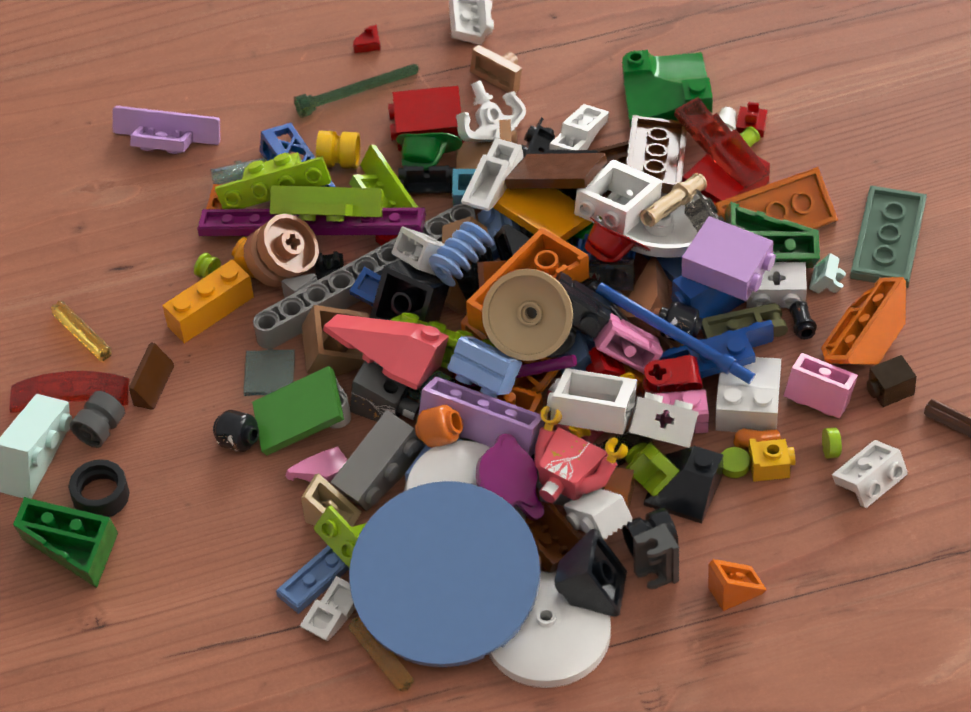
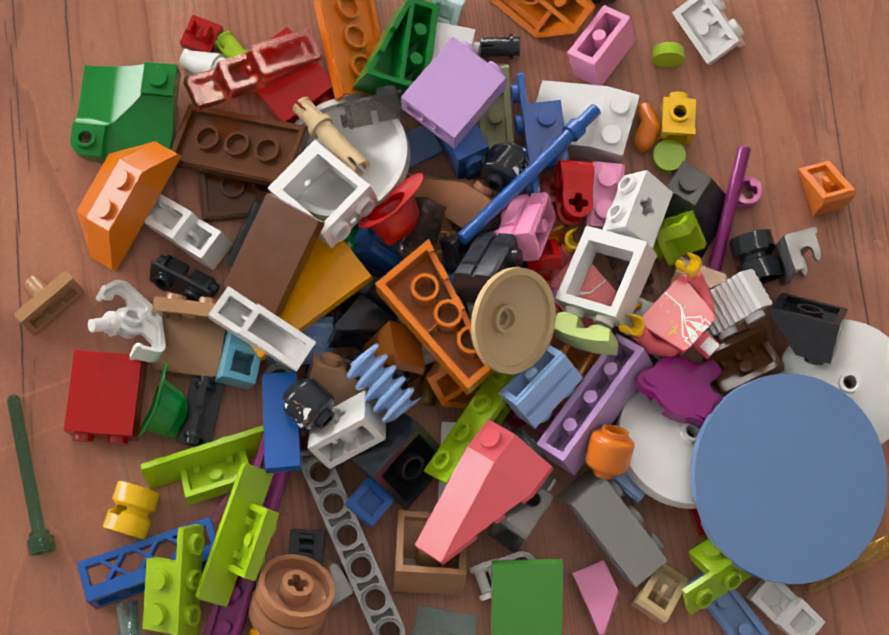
camera: 85 degrees left, 25 degrees up
(420, 211) = (281, 433): none -> blue tile
(437, 217) = (308, 404): none -> black head
(538, 384) = (593, 339): none -> yellowish green slope
(591, 92) = (123, 199): none -> orange wedge
(692, 508) = (729, 208): none -> magenta bar
(709, 532) = (752, 185): none -> dark pink bush

